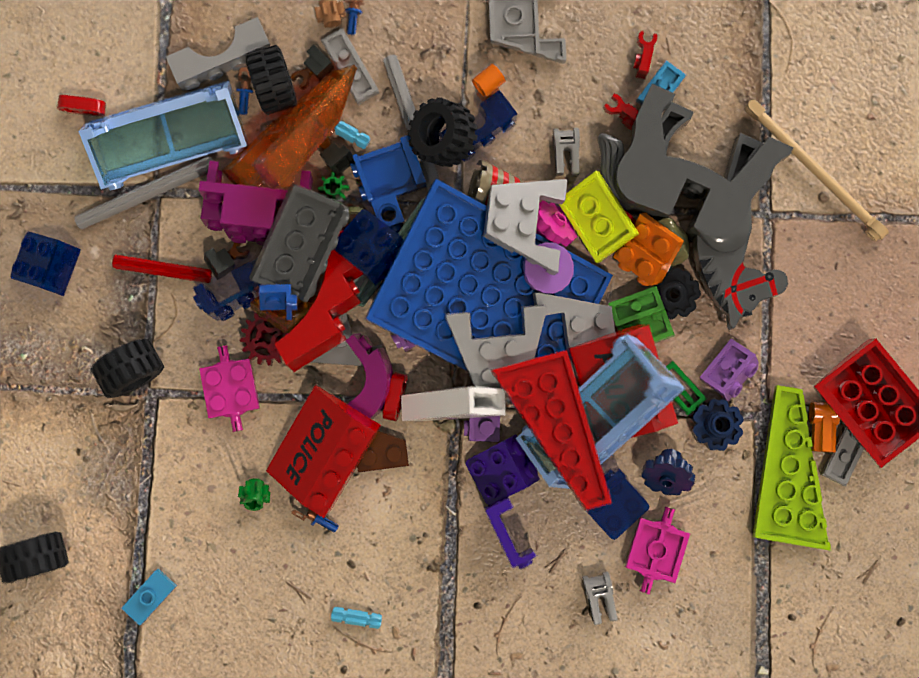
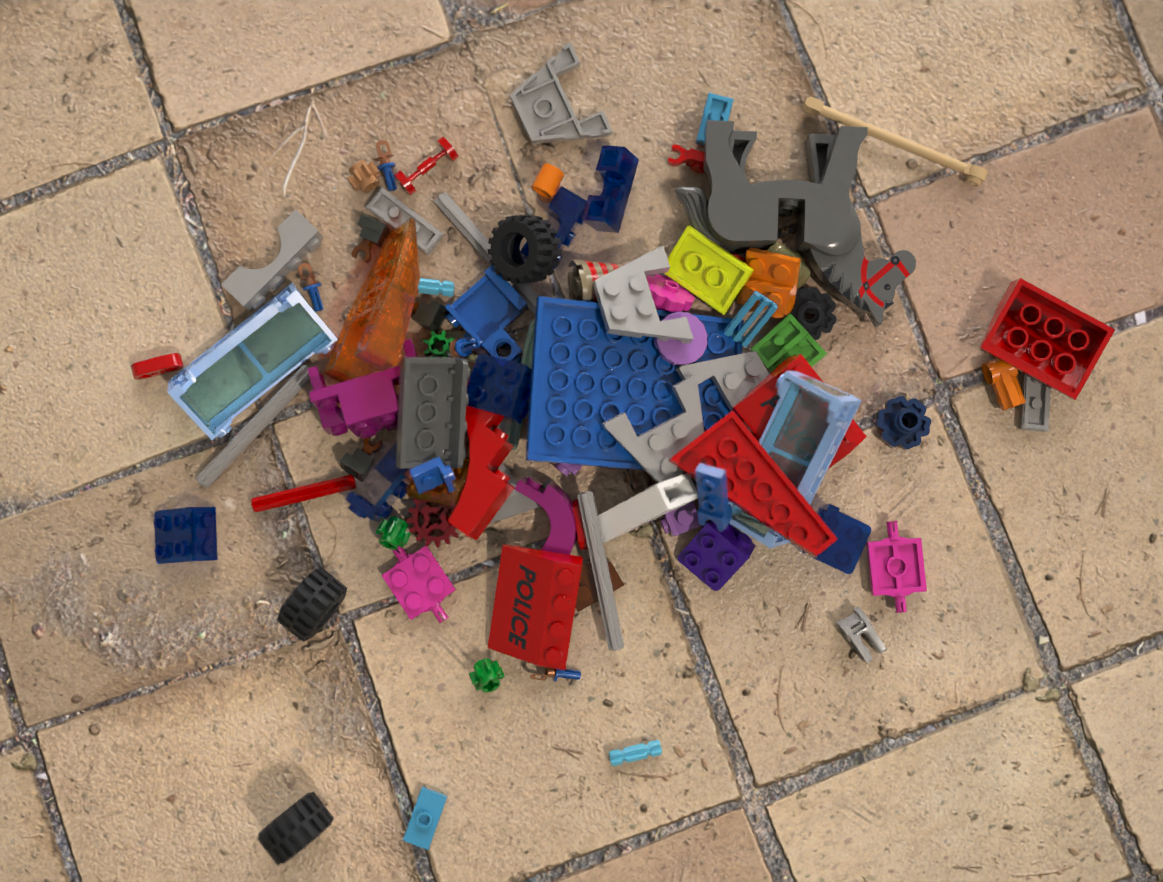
camera: 25 degrees left, 0 degrees up
(224, 335) = (393, 533): none -> green gear
(271, 79) = (335, 265): black tyre -> none
(353, 197) = (463, 347): none -> blue piece
(389, 24) = (427, 165): none -> red wheel
(392, 444) = (600, 570): none -> light grey axle
(516, 419) = (713, 496): none -> blue plate
(516, 559) = (726, 596): dark purple panel -> none
(556, 97) = (618, 171): none -> clear blue arch
(566, 141) = (649, 208): light grey piece -> none
(601, 286) = (738, 335): none -> dark azure tile
(643, 60) = (686, 102): red plate -> none
(668, 473) = (877, 488): dark blue plant -> none
(701, 398) = (859, 417): green tile -> none
(730, 370) = (893, 365): medium lavender bracket -> none
(789, 488) = (995, 452): lime wing -> none

